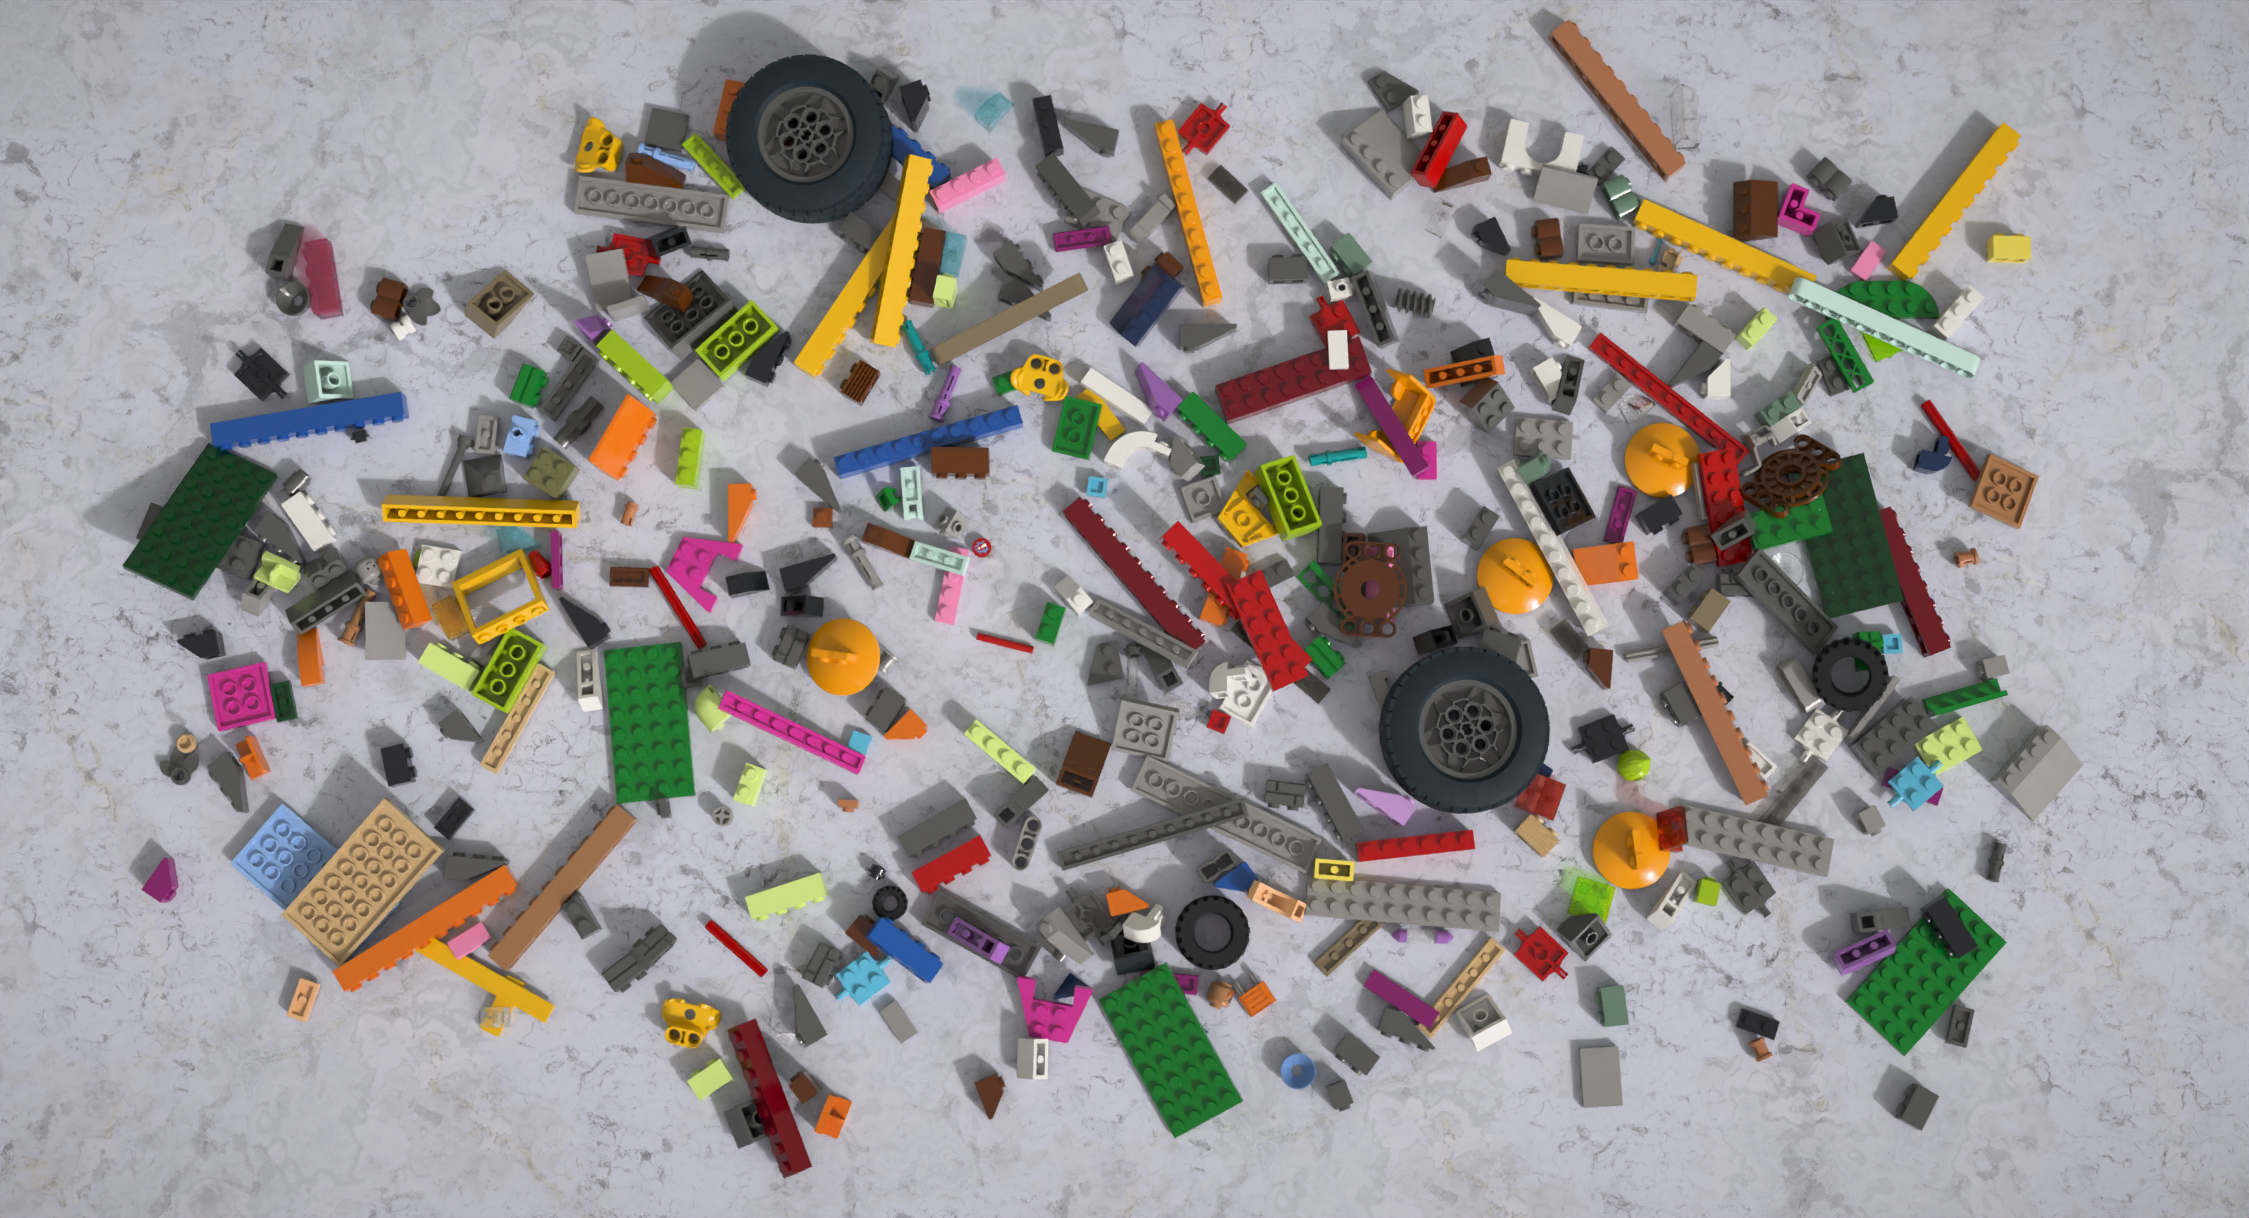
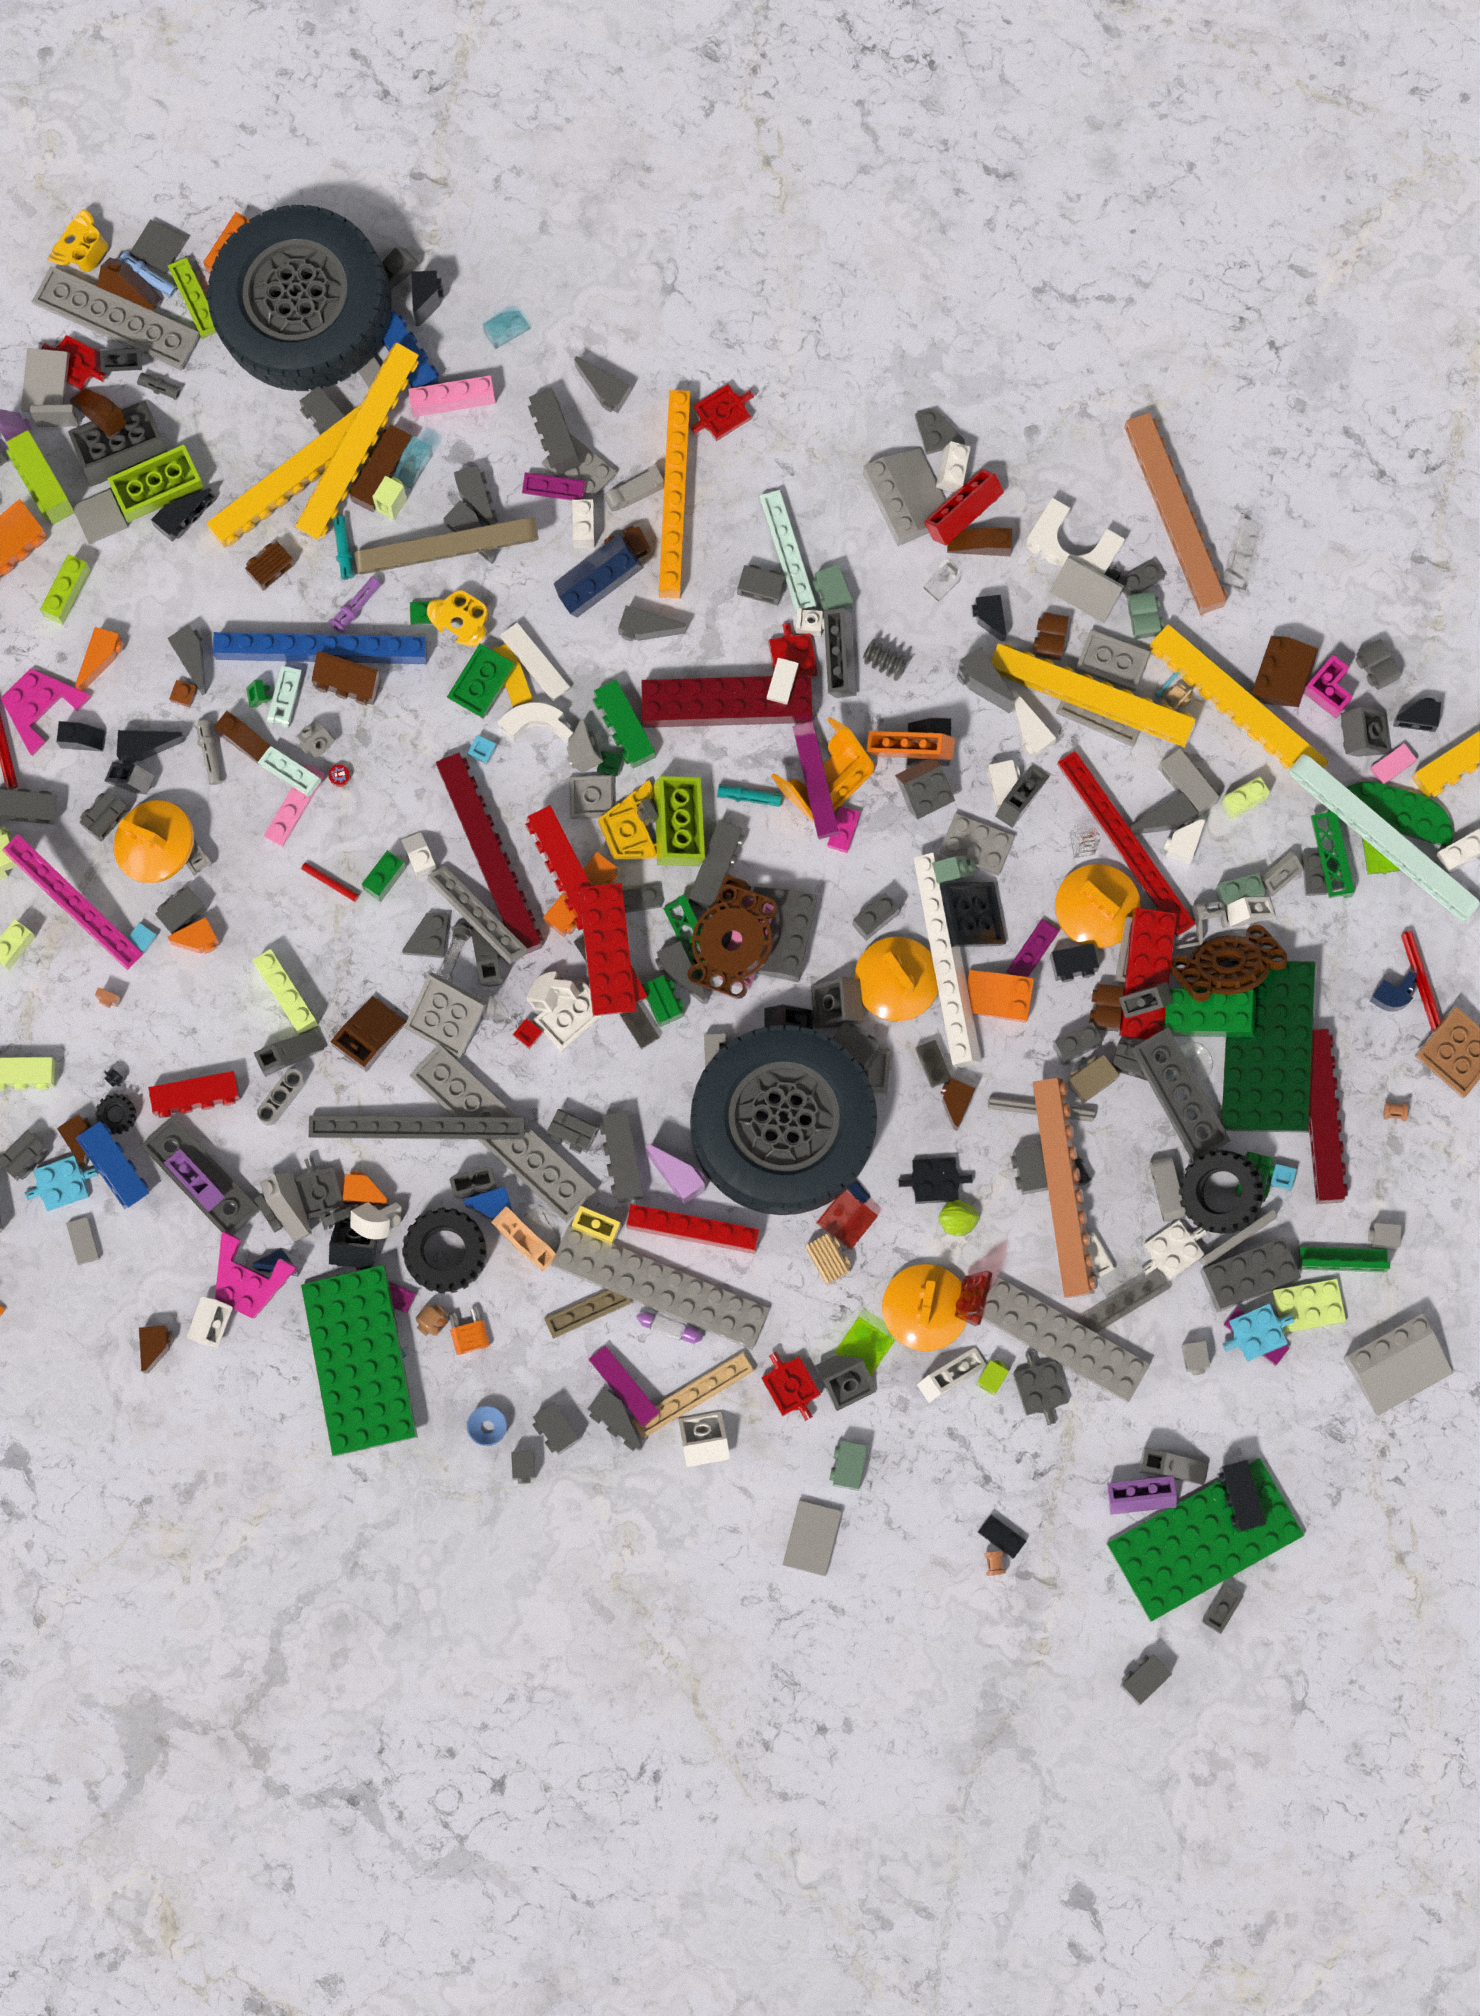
camera: 25 degrees right, 5 degrees down
(937, 828) = (192, 1051): dark grey brick -> none
(1048, 126) = (557, 359): black brick -> none
(1158, 394) = (579, 673): medium lavender slope -> none
(1227, 184) = (728, 477): clear smoke plate -> none
(1611, 393) = (1065, 819): light grey plate -> none
(1996, 862) = (1321, 1446): dark grey pin -> none

